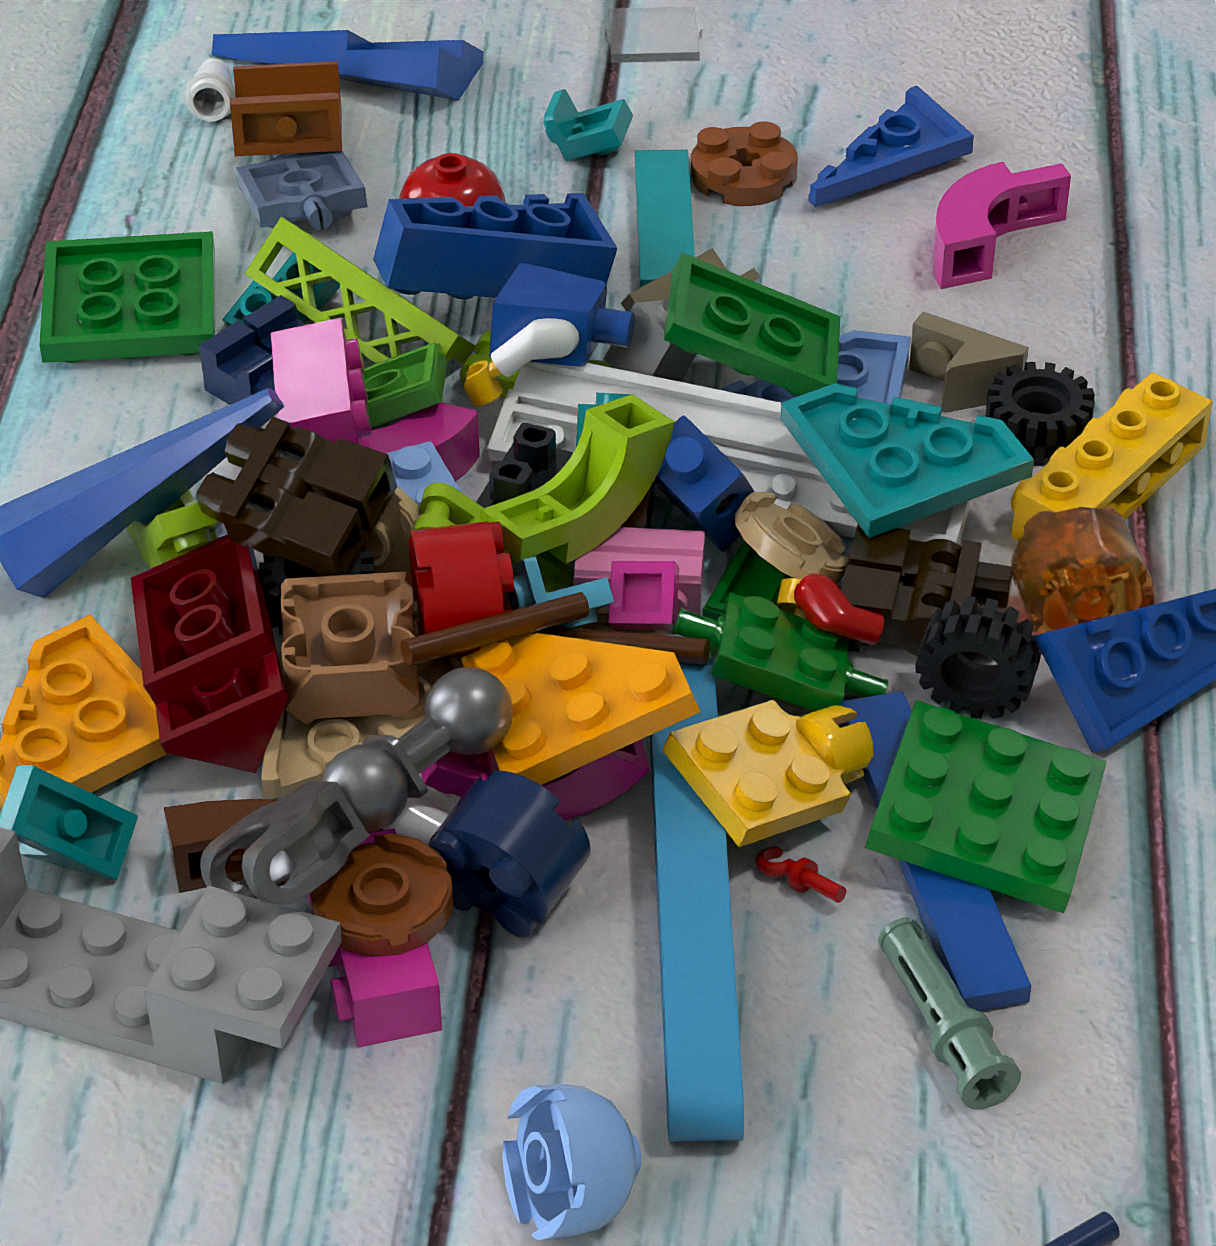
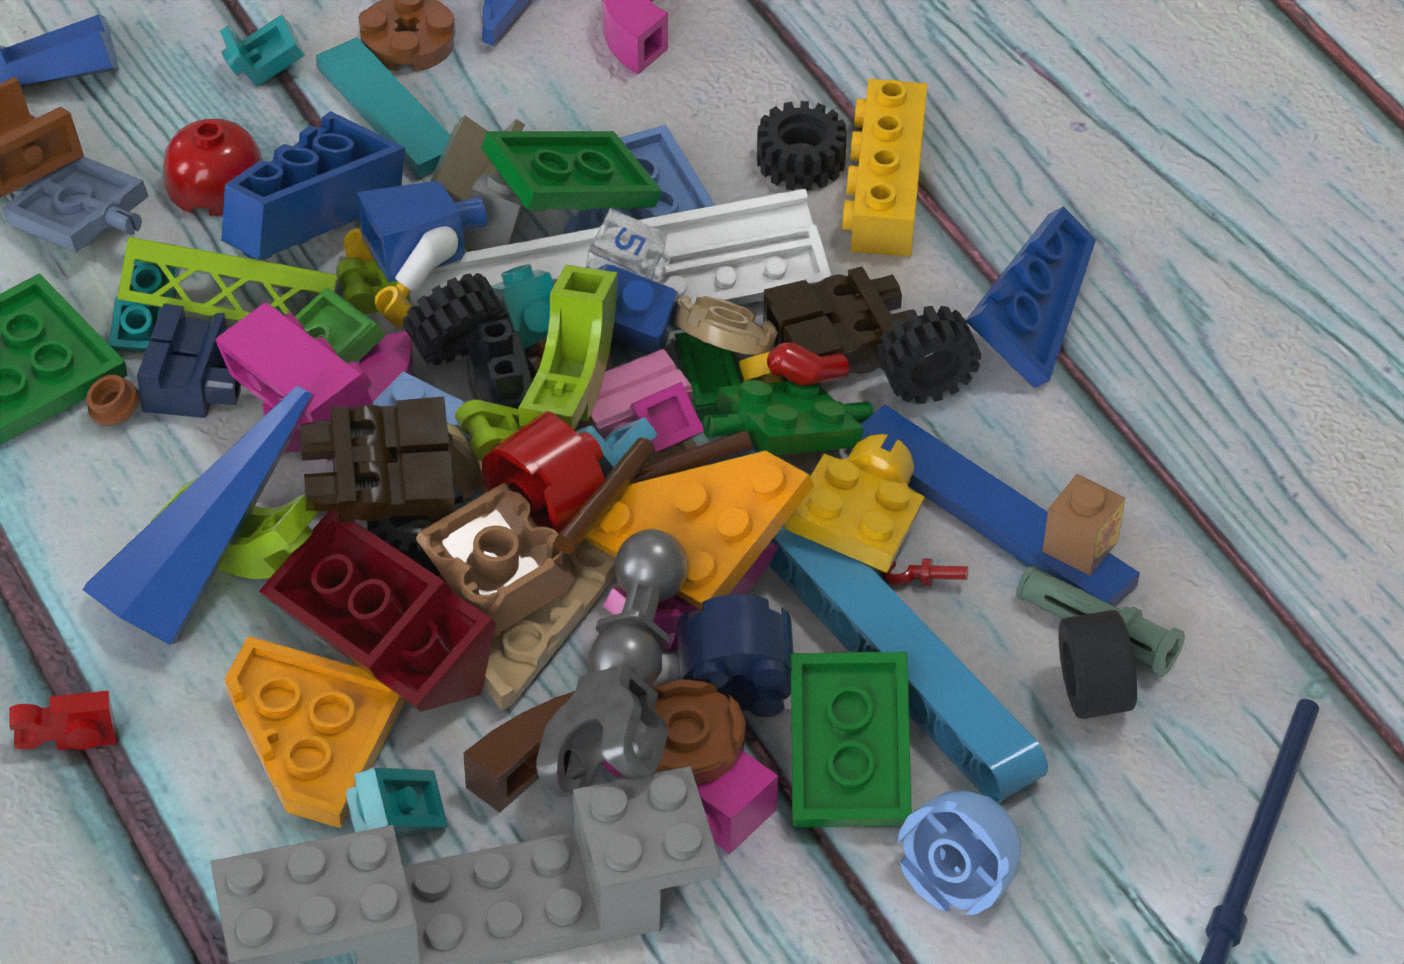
camera: 35 degrees left, 5 degrees up
(175, 364) = (112, 400): none -> dark orange plate
(503, 400) = (452, 316): none -> black tyre
(553, 987) = (850, 739): none -> green plate
(741, 423) = (629, 246): none -> clear brick
(881, 1048) = (1097, 664): none -> black tyre
(901, 456) = (760, 225): teal plate -> none
(961, 358) = (718, 124): dark tan slope -> none
(987, 806) = (1004, 455): green plate -> none
(991, 899) = (1083, 524): none -> medium nougat brick
(1079, 568) = (948, 258): clear orange brick -> none

